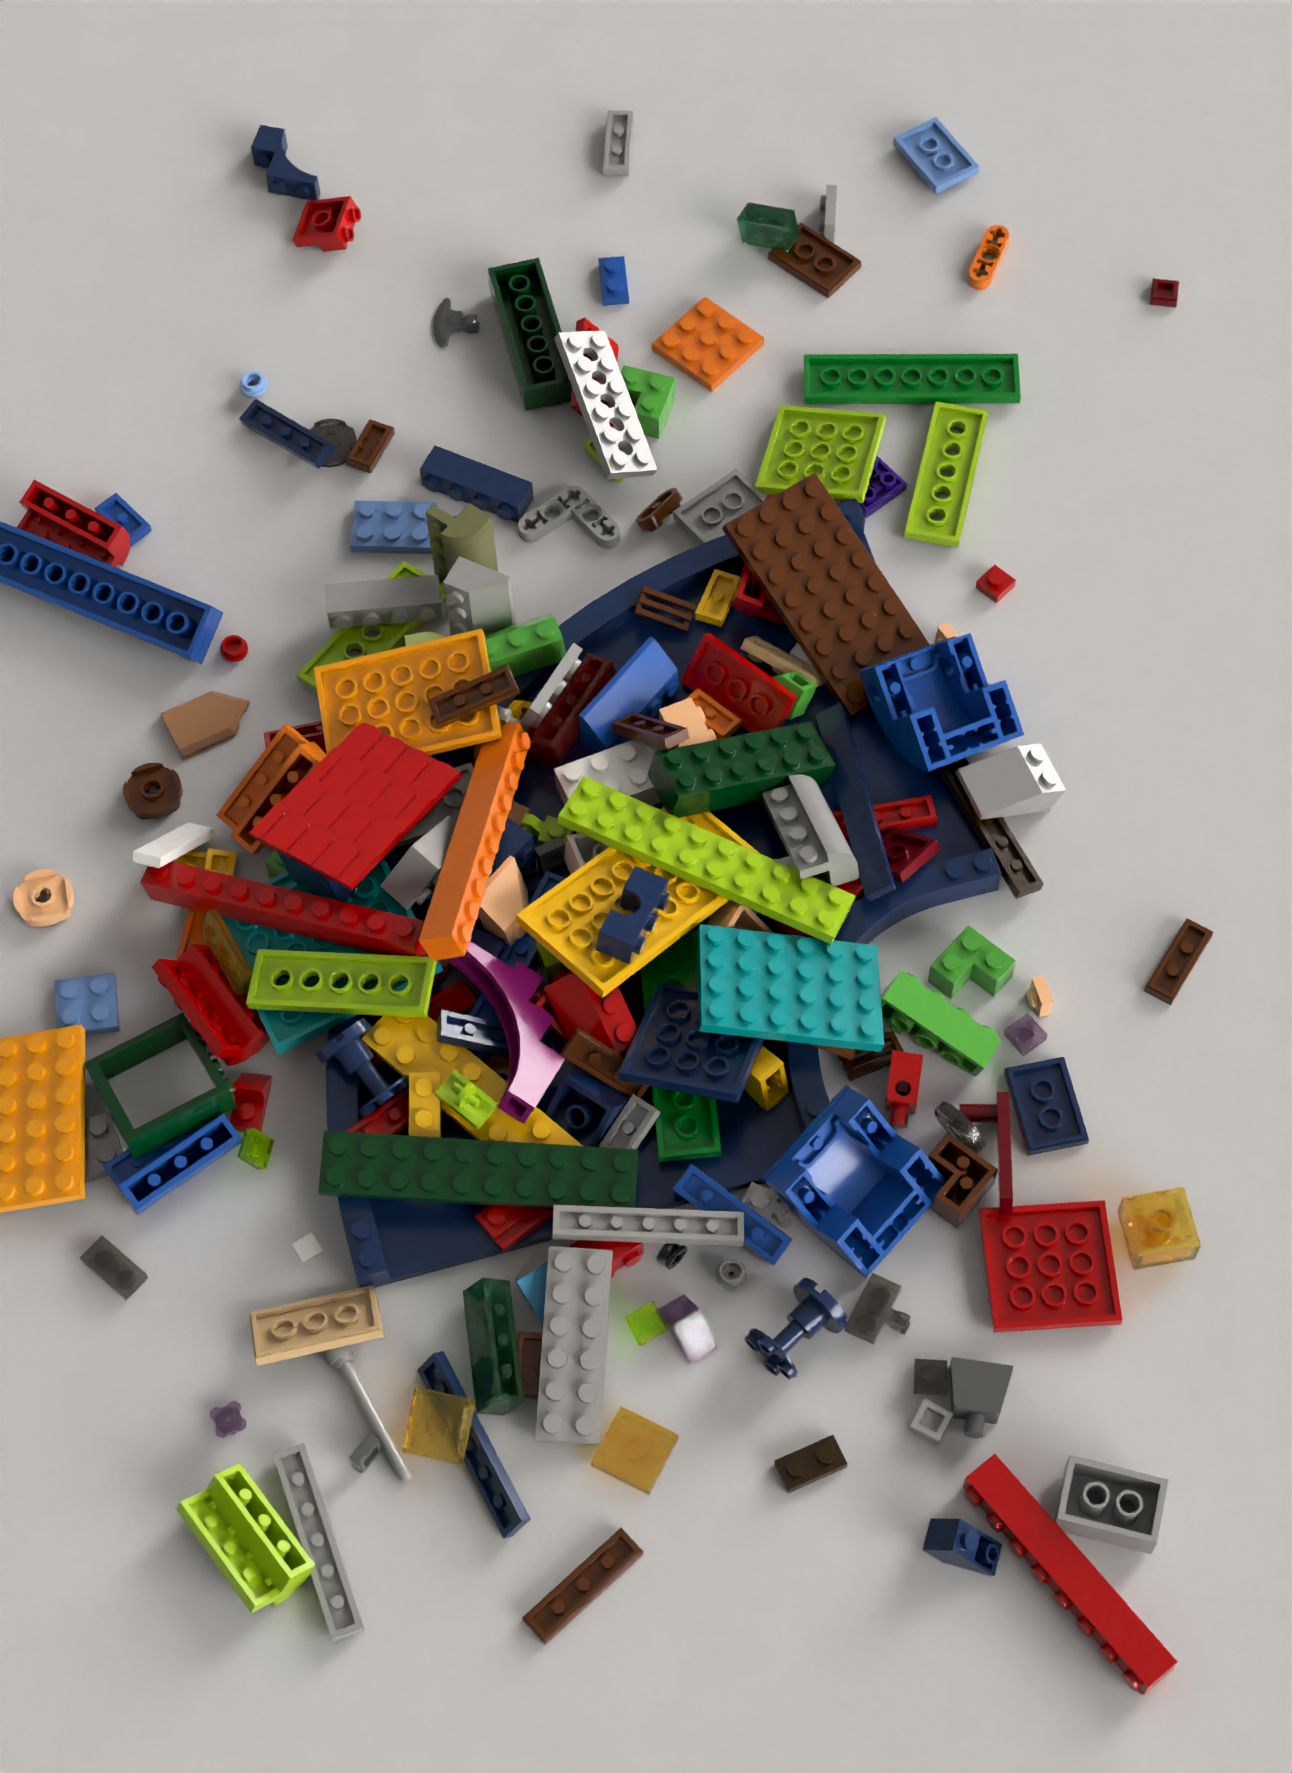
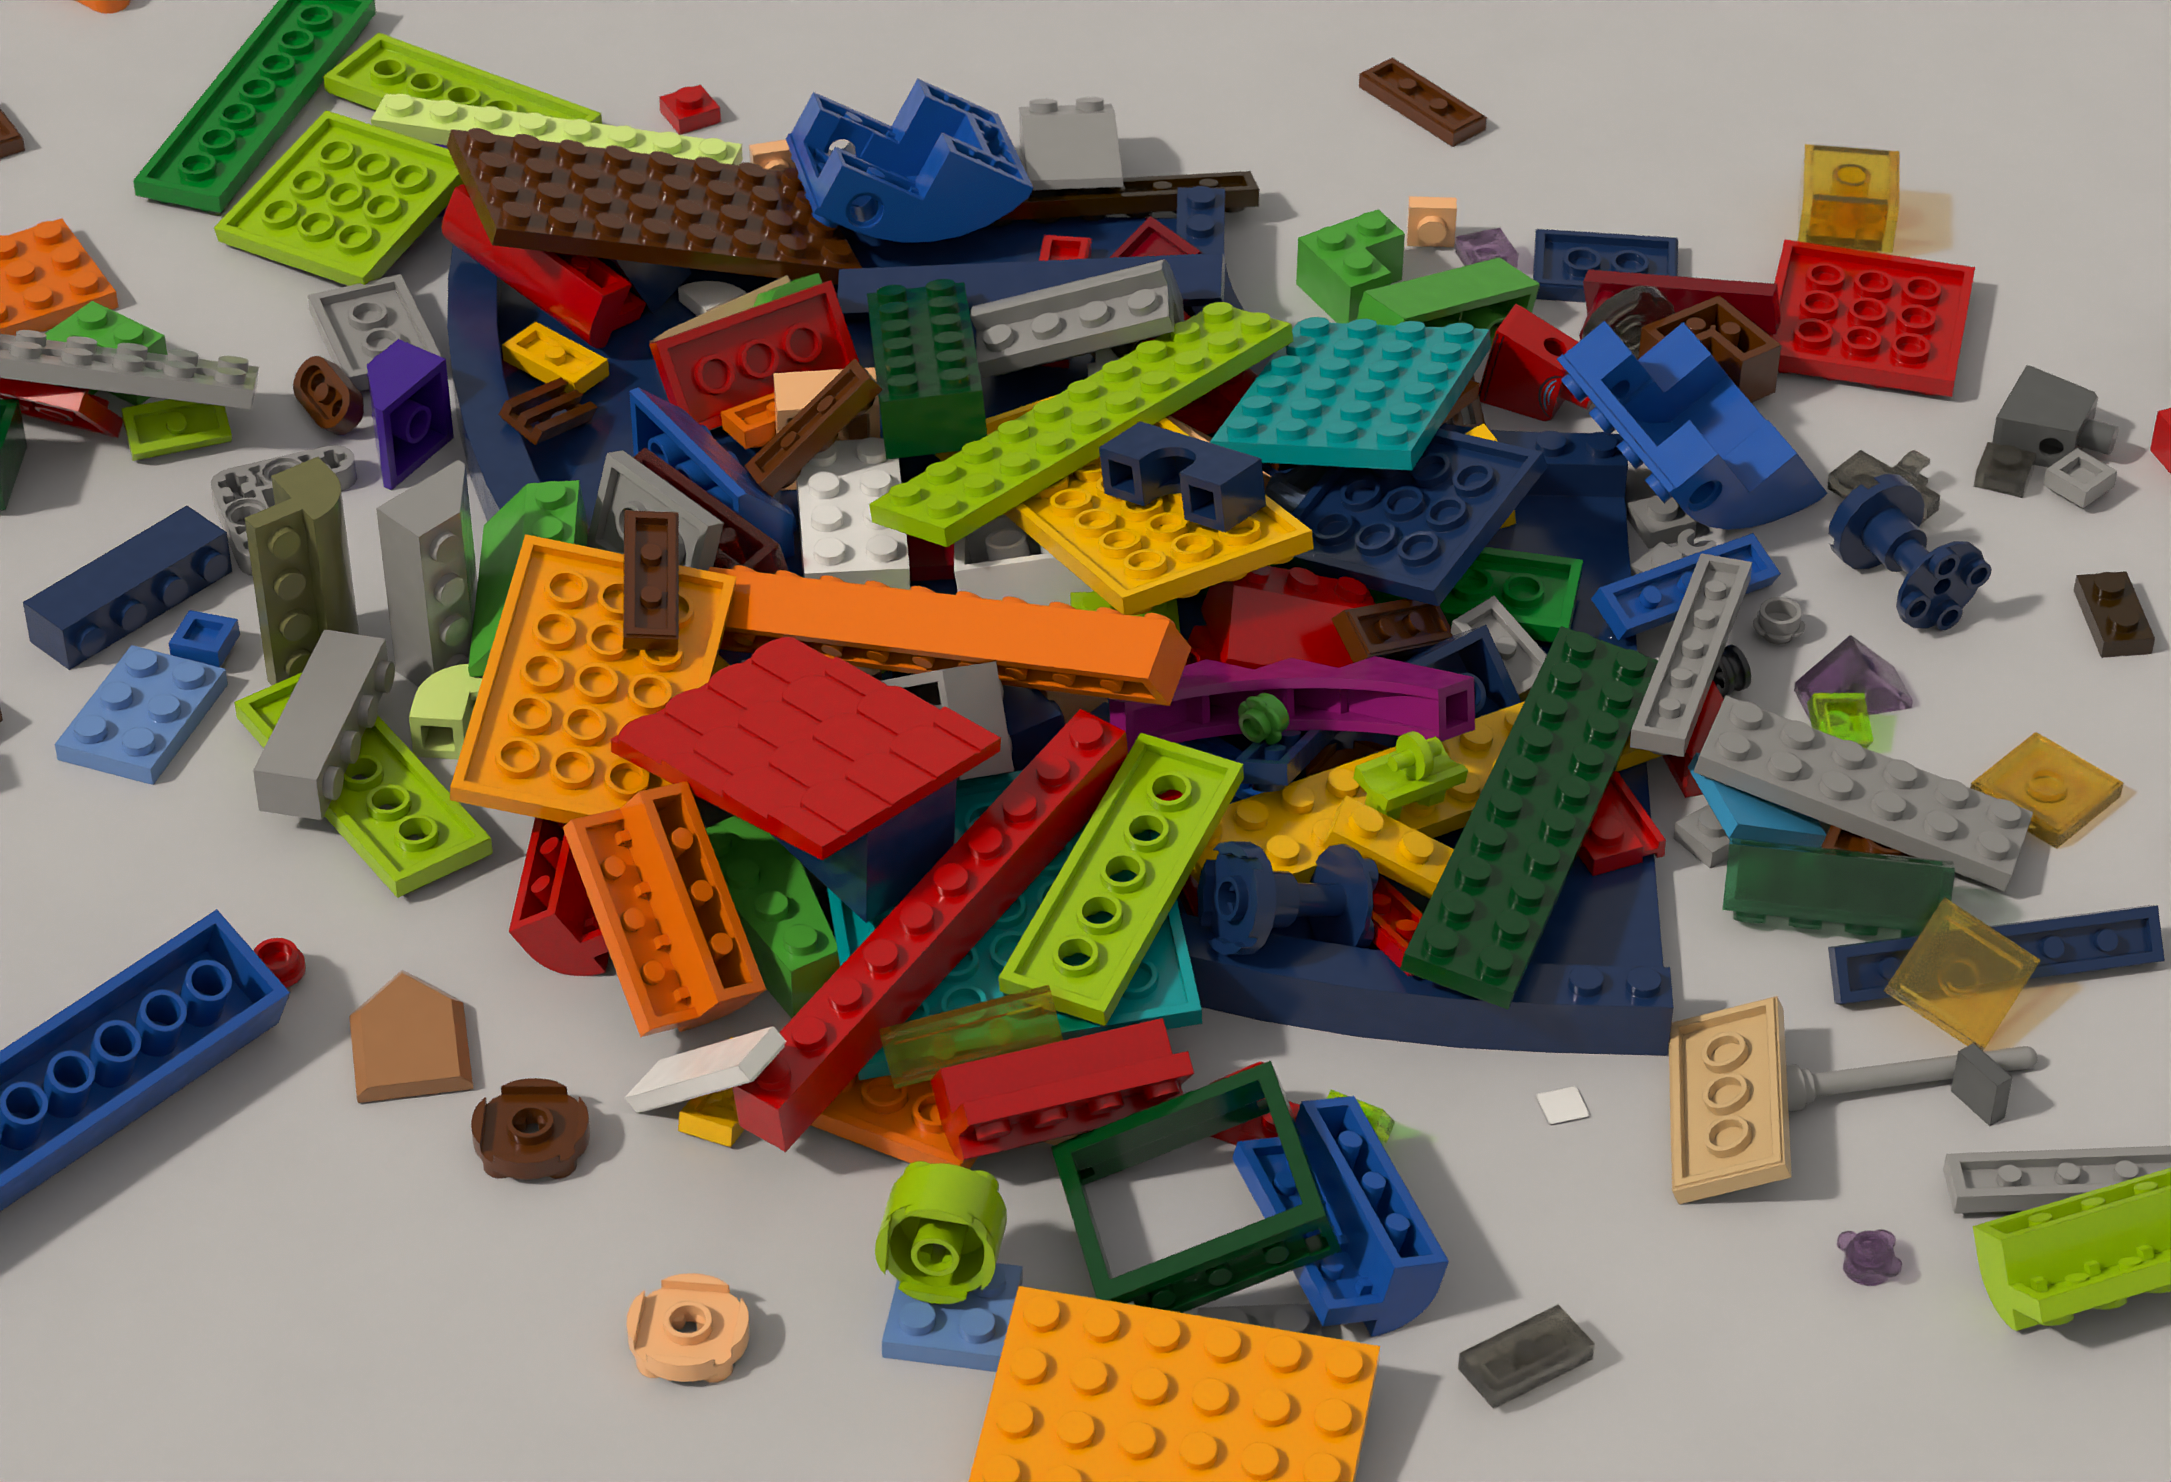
camera: 75 degrees left, 20 degrees down
(96, 979) = (941, 1231): none -> lime brick
(488, 1015) = (1263, 718): none -> bright green plate
(638, 543) = (408, 408): none -> dark purple slope
(918, 531) = (433, 121): none -> yellowish green plate

